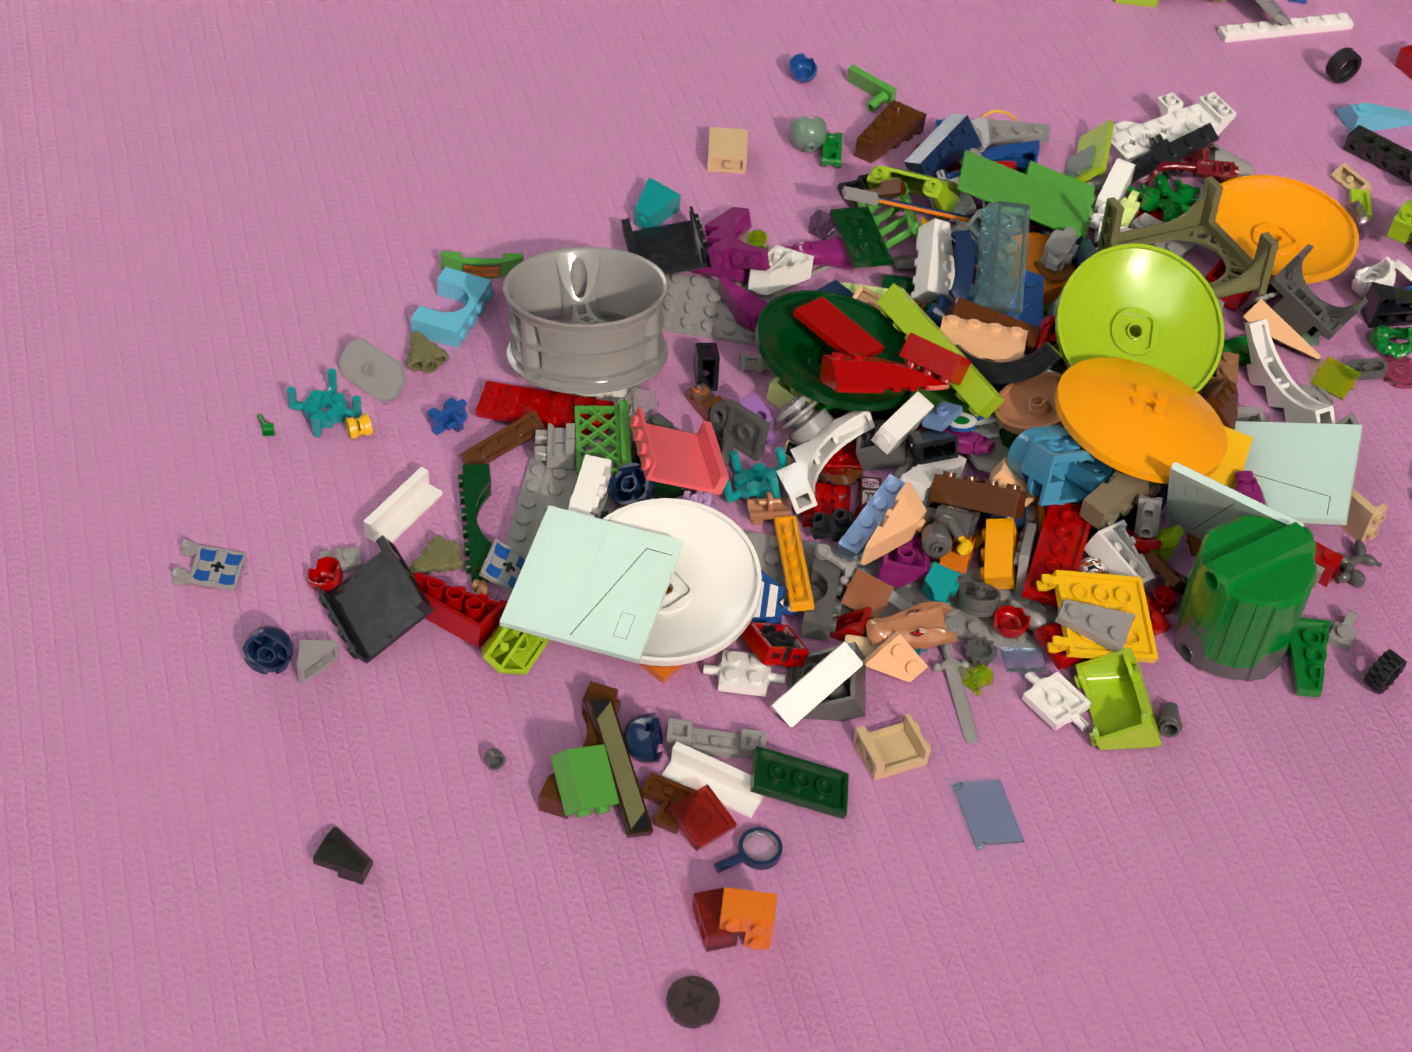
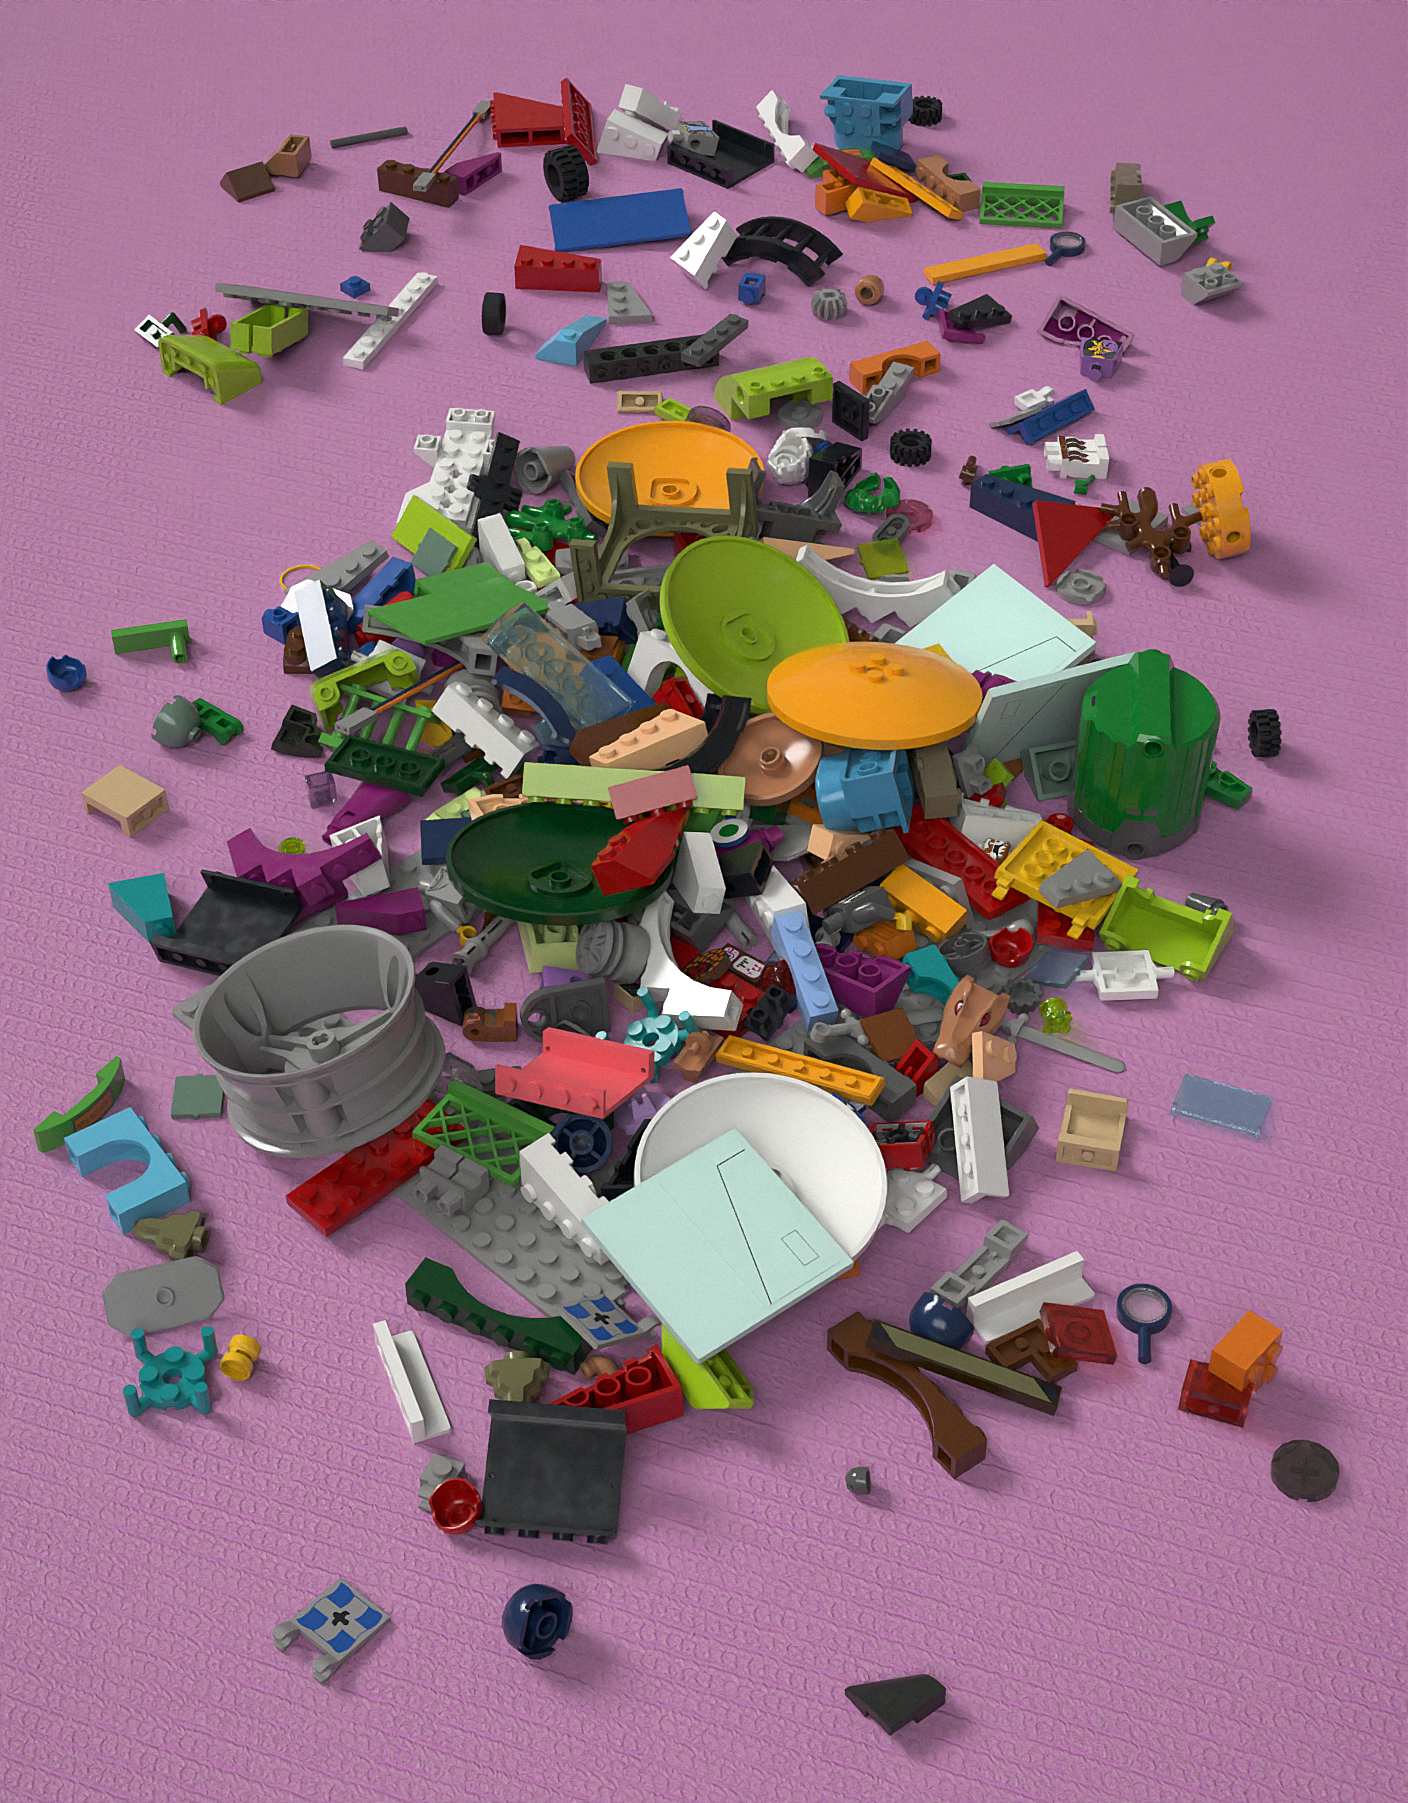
camera: 50 degrees left, 5 degrees down
(267, 428) = (151, 1457): green hand -> none
(315, 657) = (576, 1583): light grey slope -> none
(451, 417) = (316, 1260): blue hips -> none
(503, 440) = (395, 1230): reddish brown plate -> none
(585, 781) = (973, 1403): bright green brick -> none
(799, 782) = (1091, 1226): dark green tile -> none
(837, 328) = (539, 845): red tile -> none
(888, 130) = (235, 661): reddish brown wedge -> none
(890, 189) = (362, 697): reddish brown slope -> none
(898, 525) = (839, 954): light nougat wedge -> none
(936, 540) = (879, 936): dark grey head -> none
(942, 416) = (722, 840): medium blue plate -> none
(1172, 579) = (1050, 804): reddish brown plate -> none
(1201, 168) = (546, 475): dark red piece -> none

